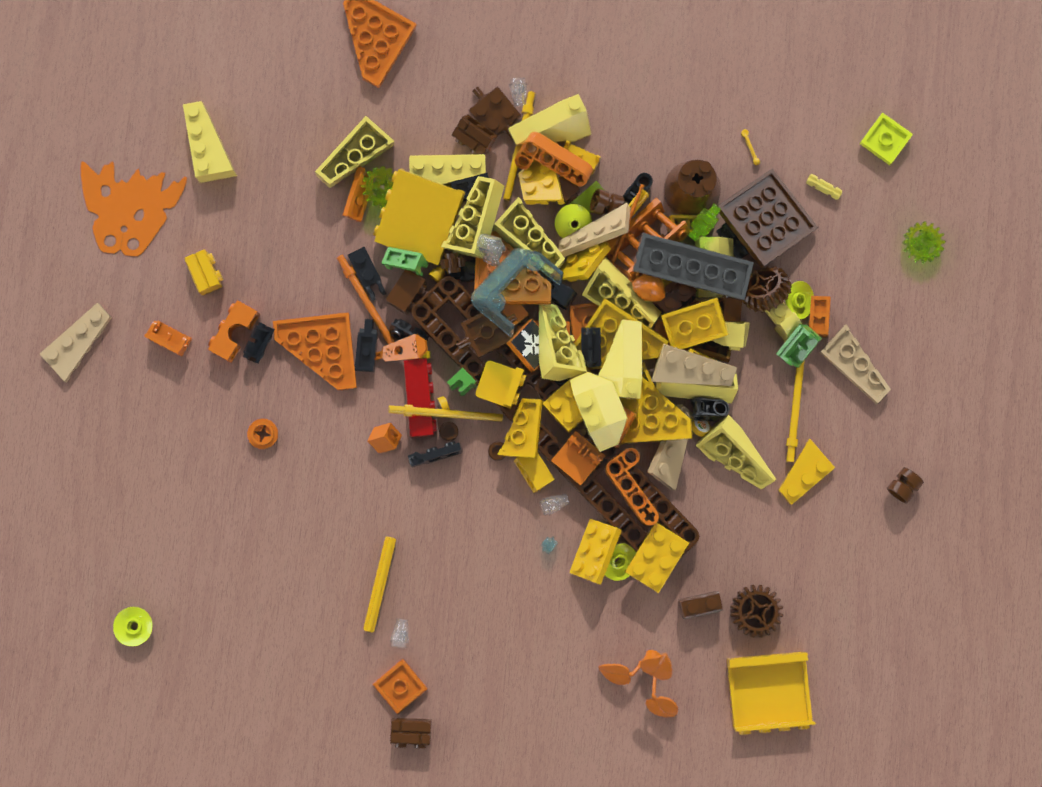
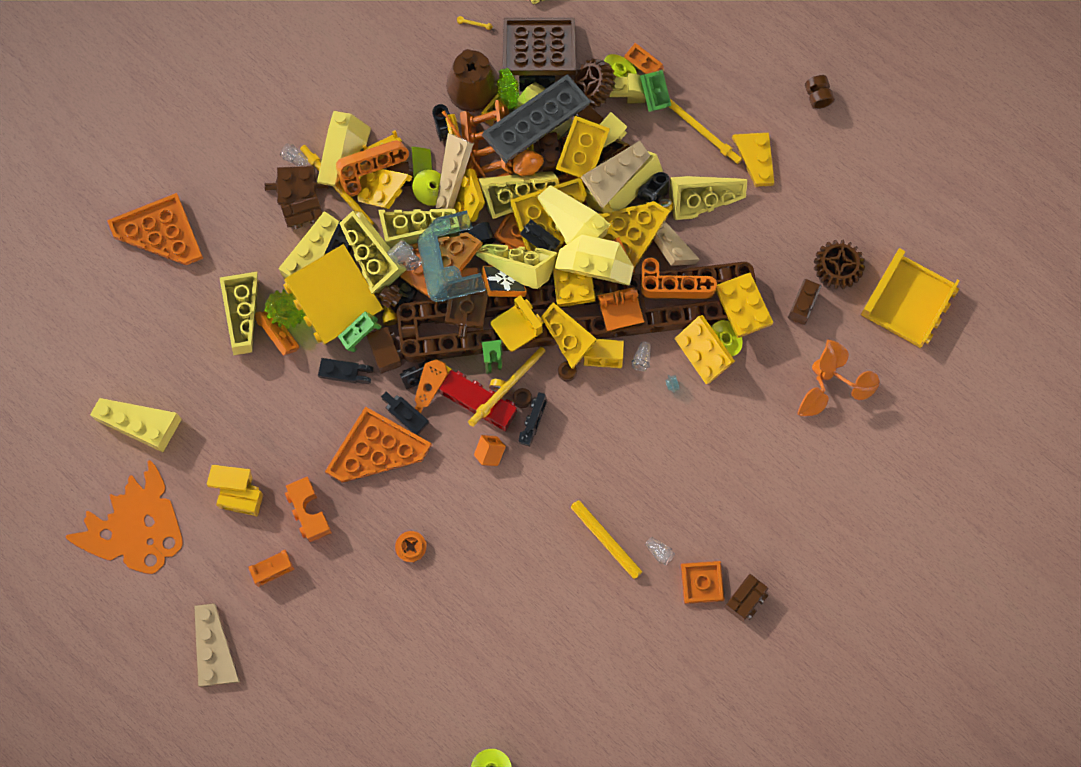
camera: 50 degrees left, 10 degrees down
(211, 251) = (229, 478): none -> yellow panel
(262, 335) = (337, 501): black hinge -> none
(349, 272) = (334, 384): orange bar -> none
(603, 202) = (433, 152): reddish brown wheel -> none
(849, 358) = (697, 65): tan wing -> none

